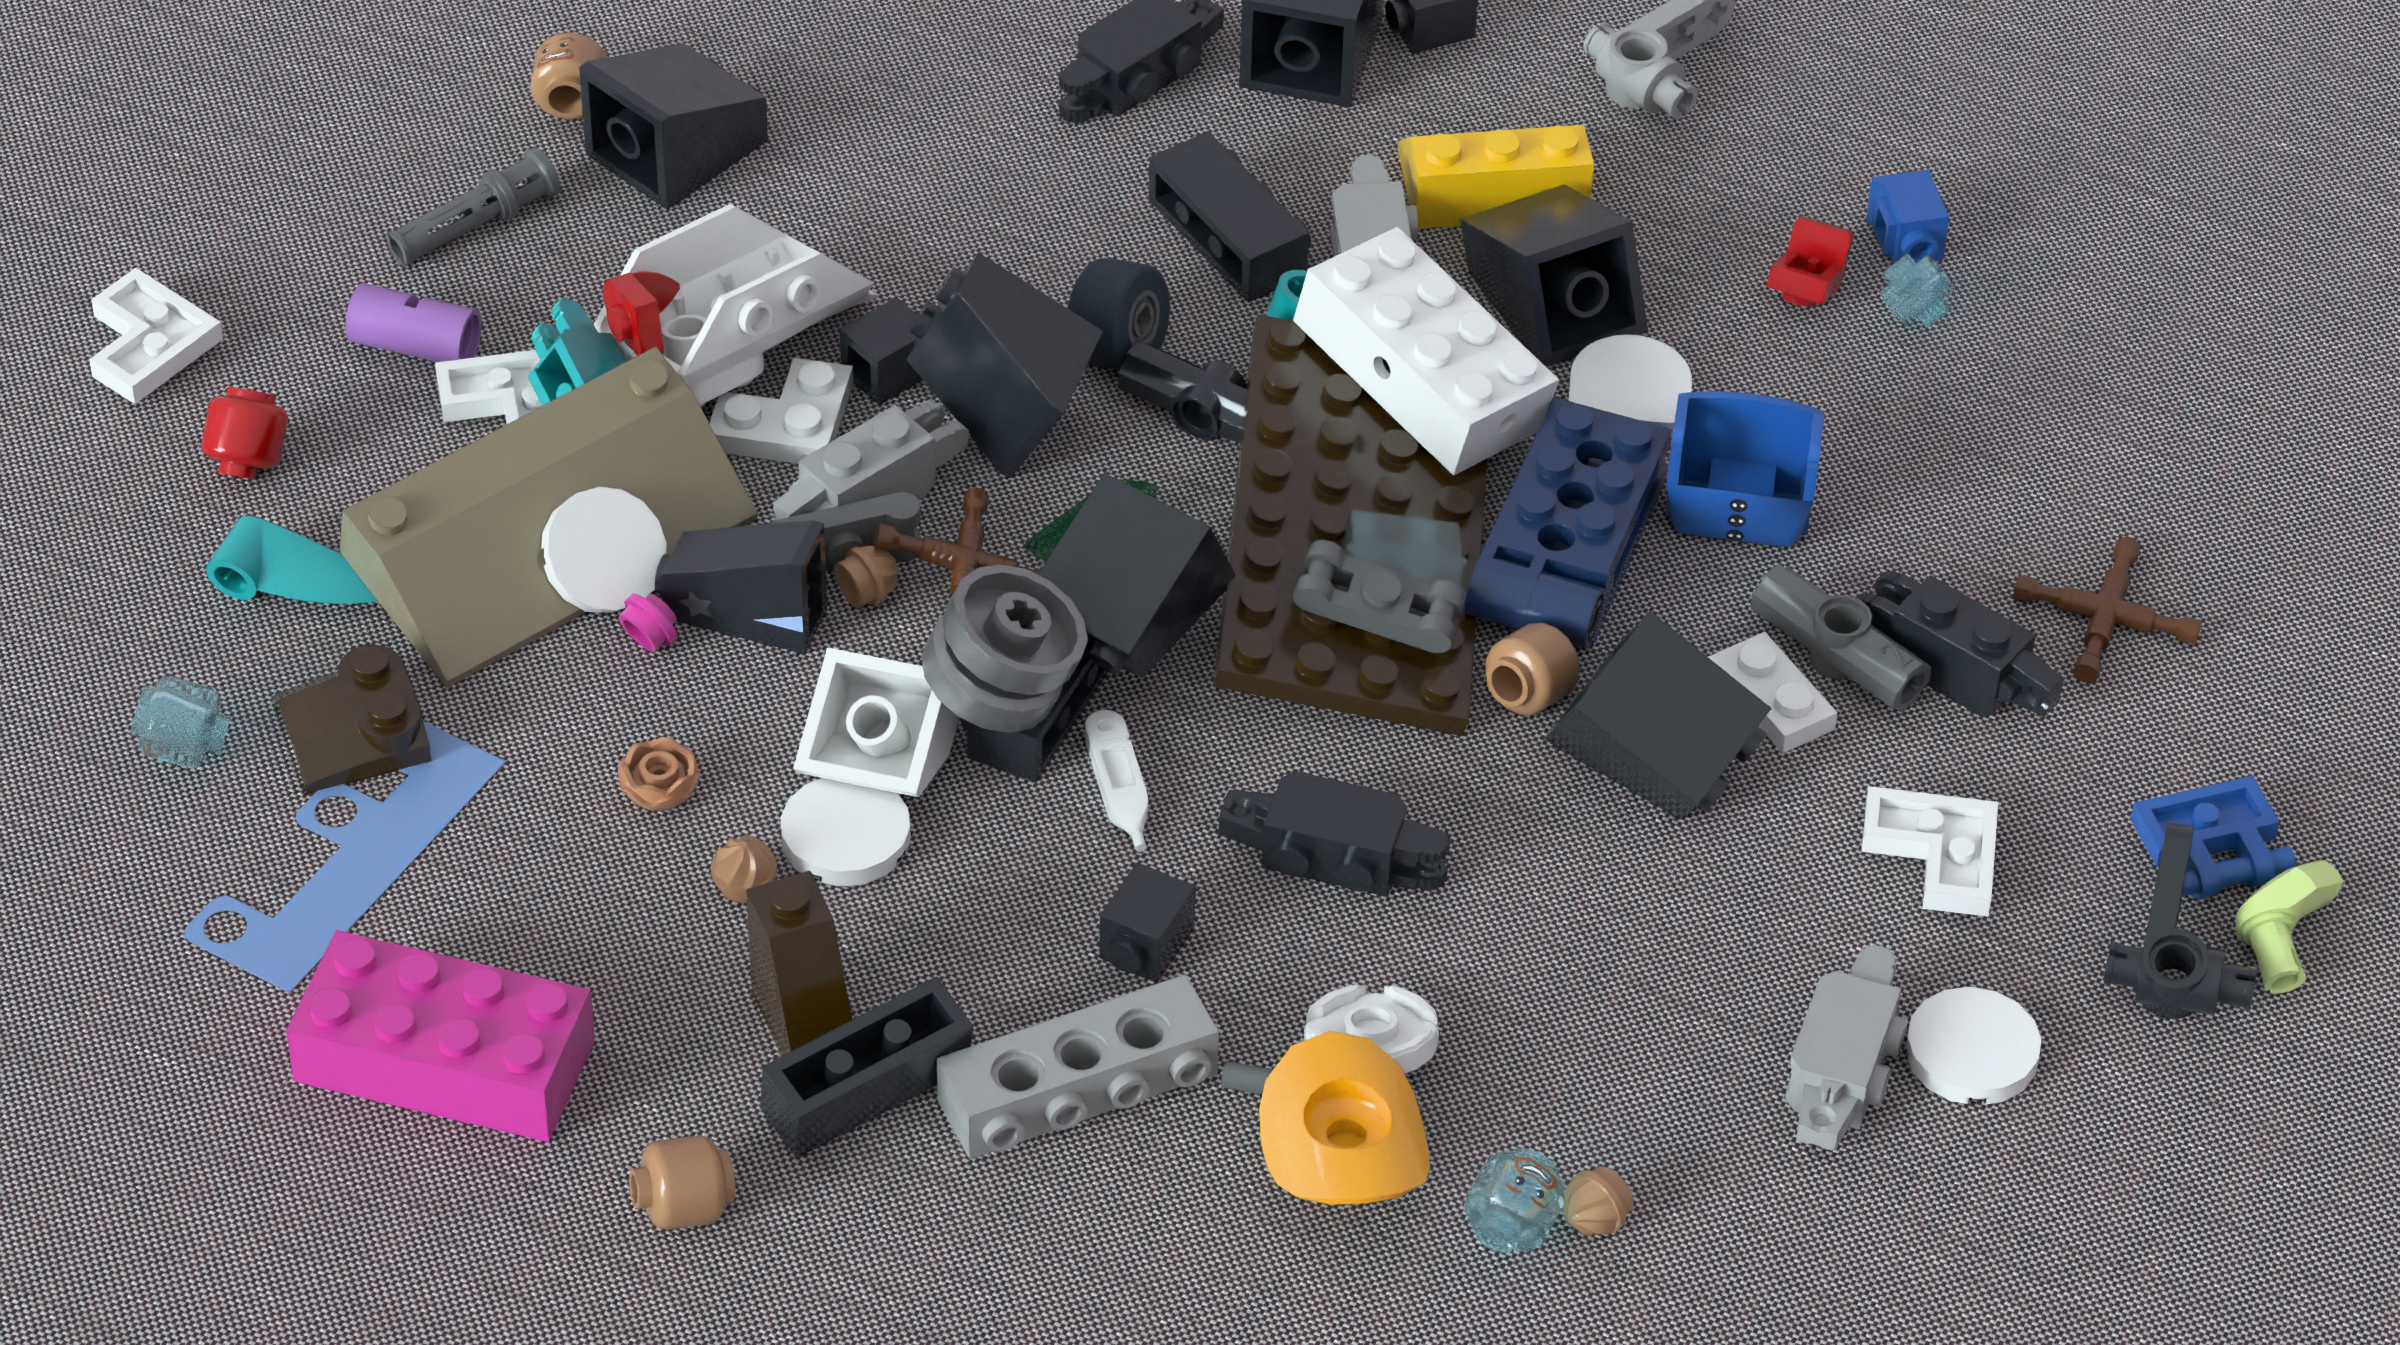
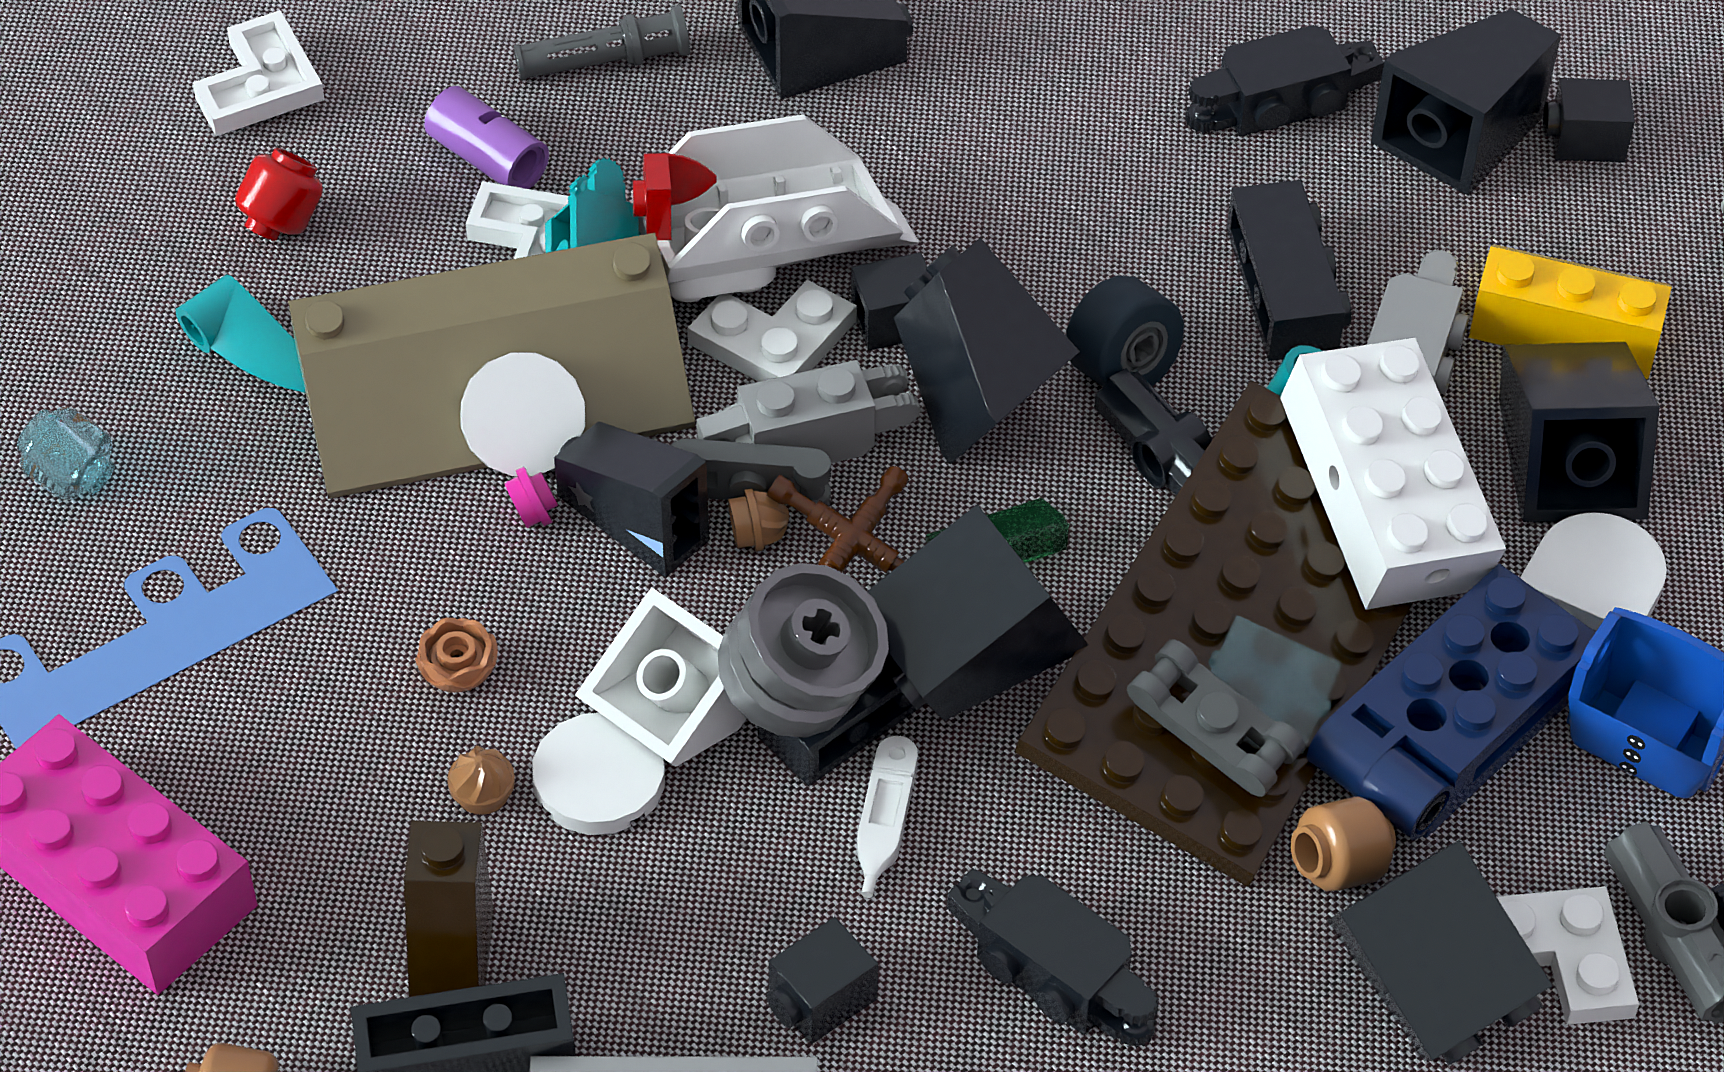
camera: 25 degrees right, 5 degrees up
(354, 721) = (220, 504): dark brown slope -> none

